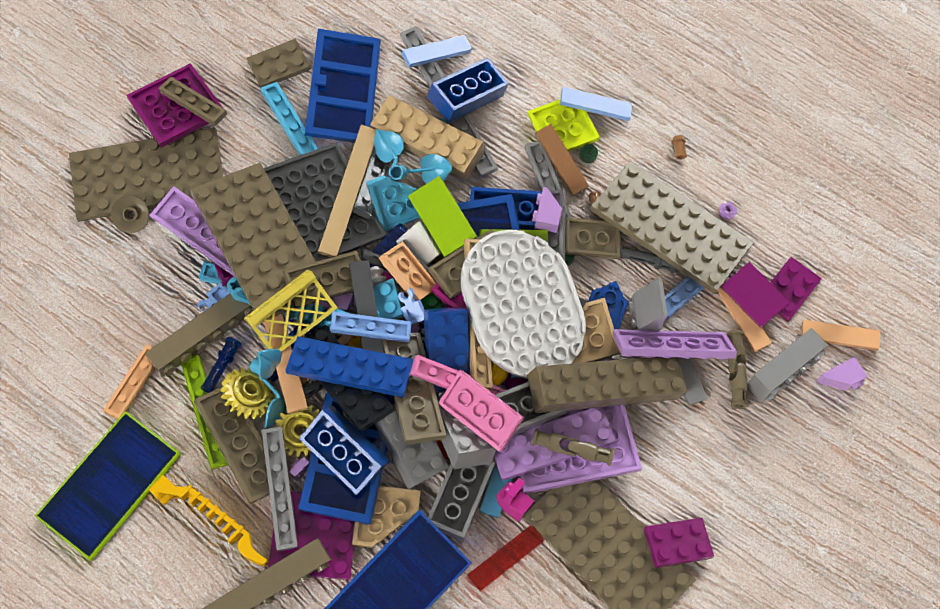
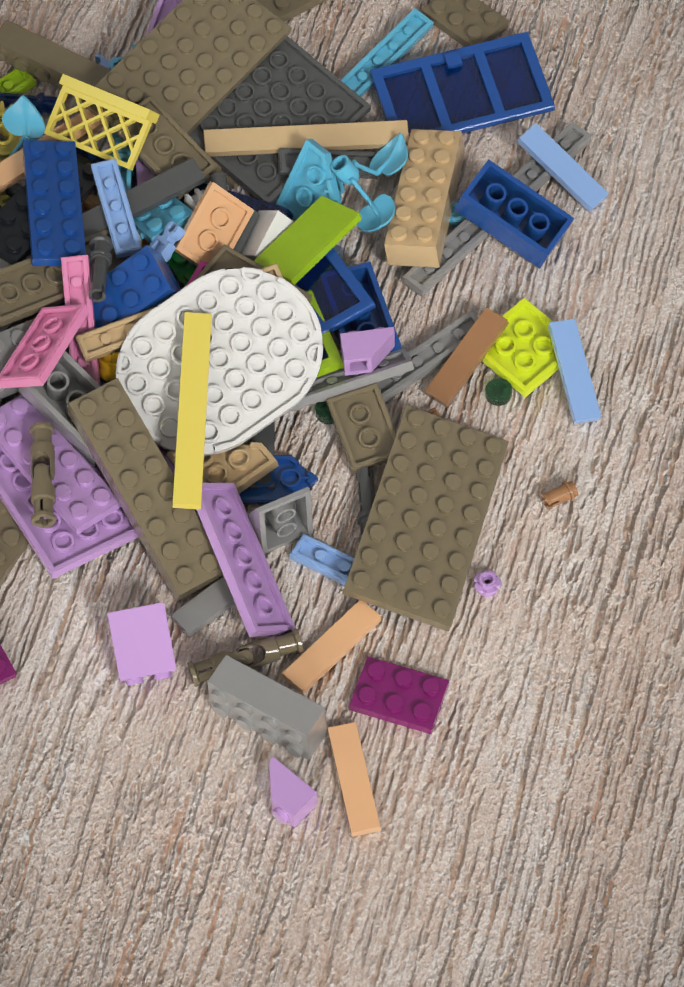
camera: 75 degrees right, 10 degrees down
(417, 348) = (99, 260): none -> dark grey pin
(568, 329) = (192, 411): none -> light yellow tile
(707, 428) = (142, 643): none -> lavender slope
(755, 295) = (363, 644): magenta tile -> none

